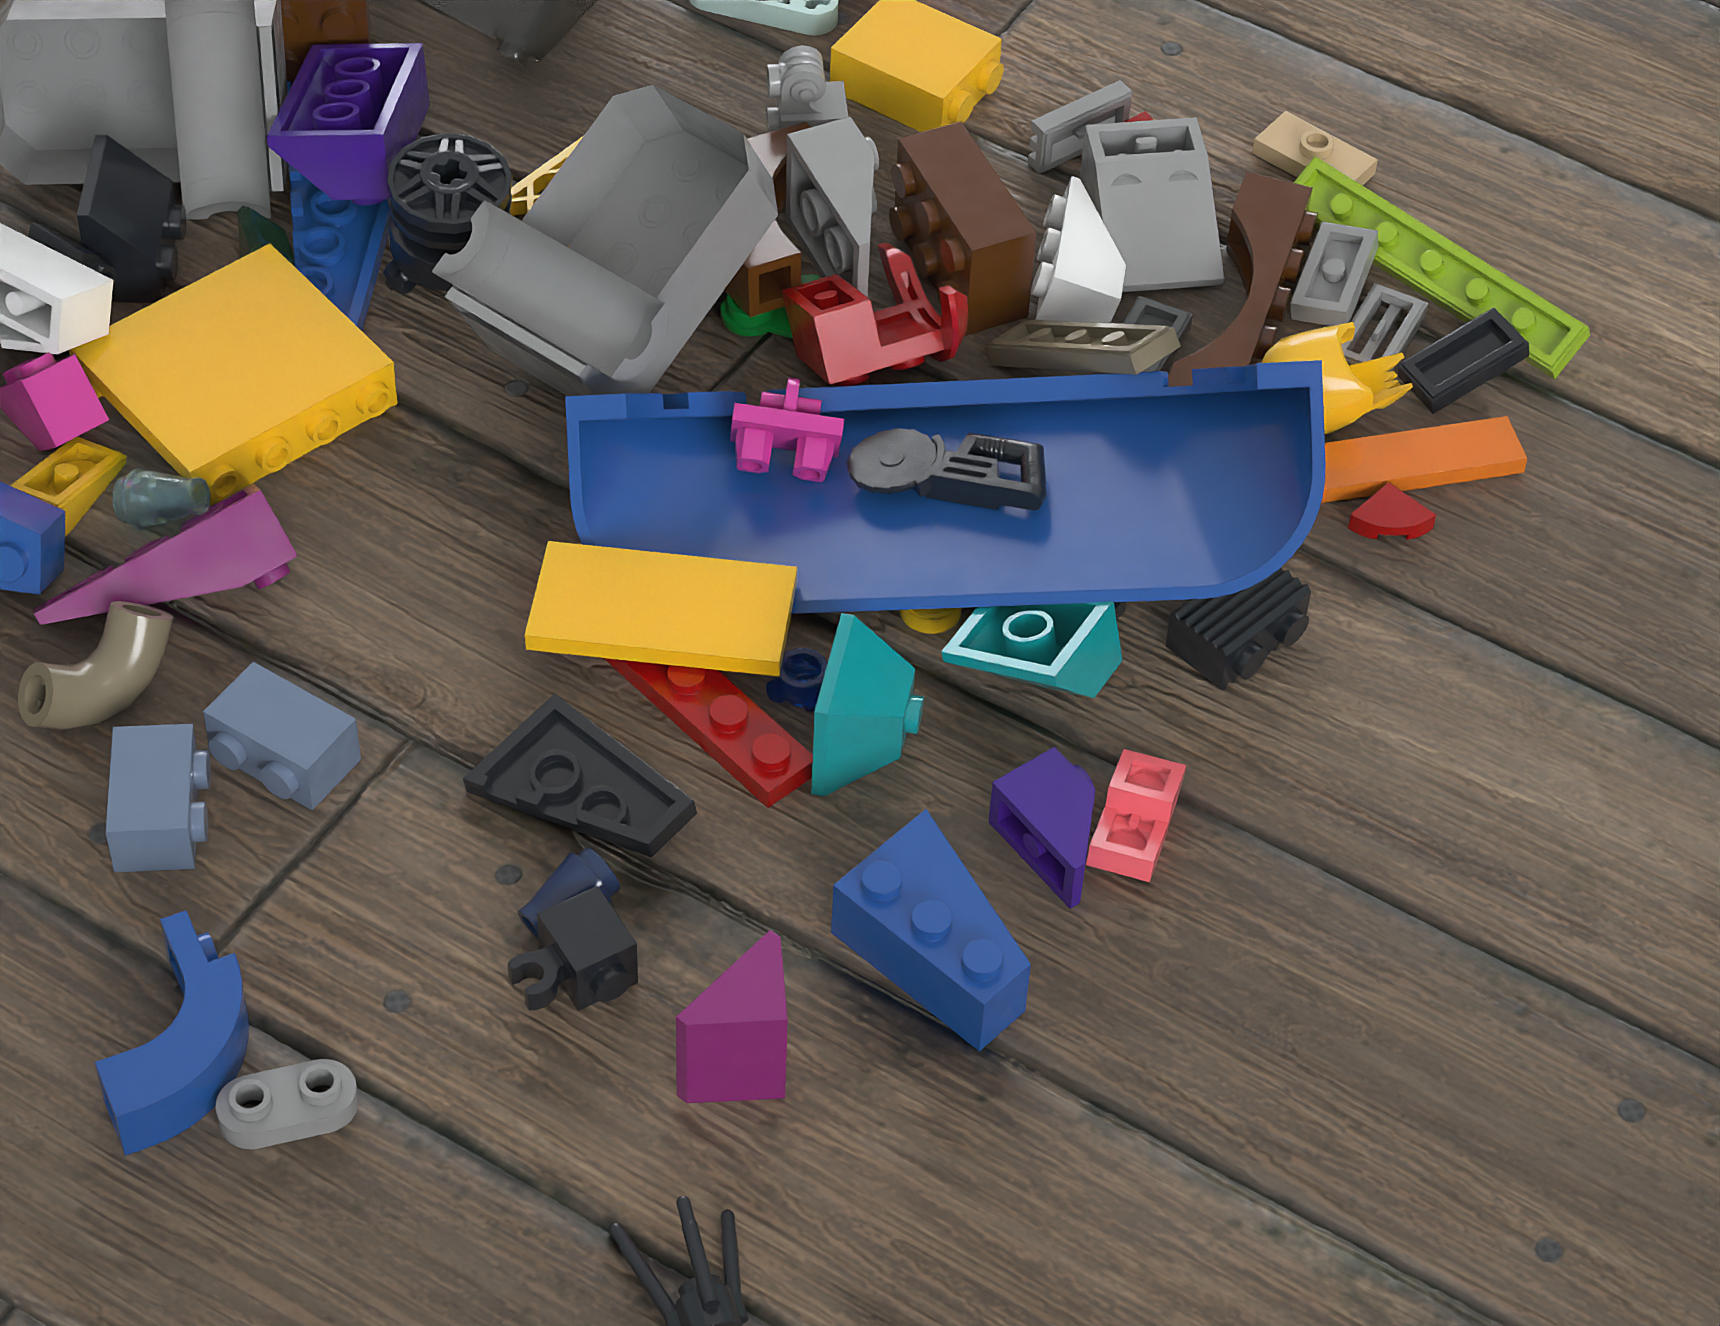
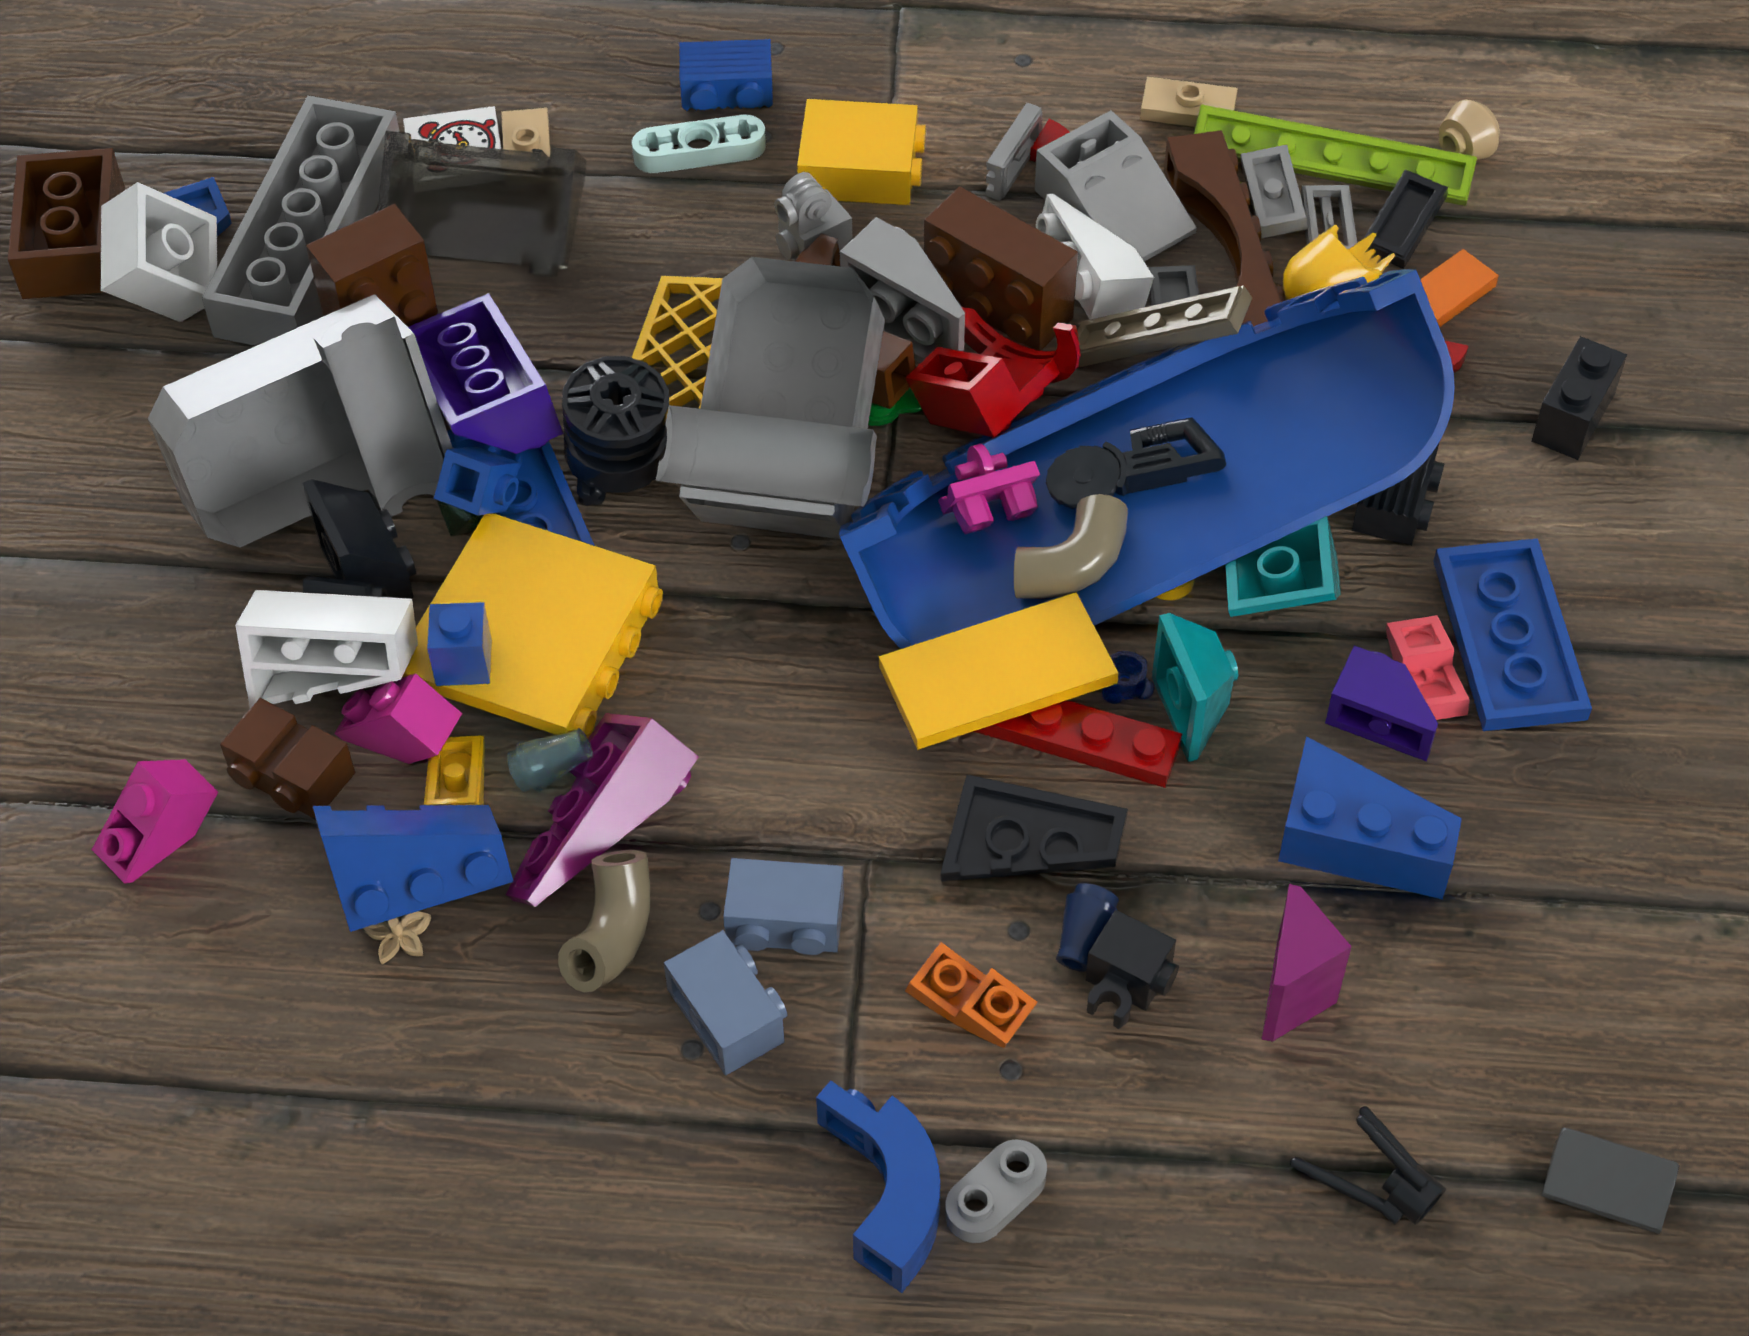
camera: 25 degrees left, 5 degrees up
(135, 345) = (459, 644): none -> blue brick
(274, 207) = (477, 480): none -> blue brick
(404, 908) = (970, 999): none -> orange slope
(821, 535) = (1079, 559): none -> dark tan cylinder
(1254, 821) = (1511, 635): none -> blue plate
(1516, 615) = (1579, 398): none -> black brick
(1603, 300) = (1470, 130): none -> tan cone

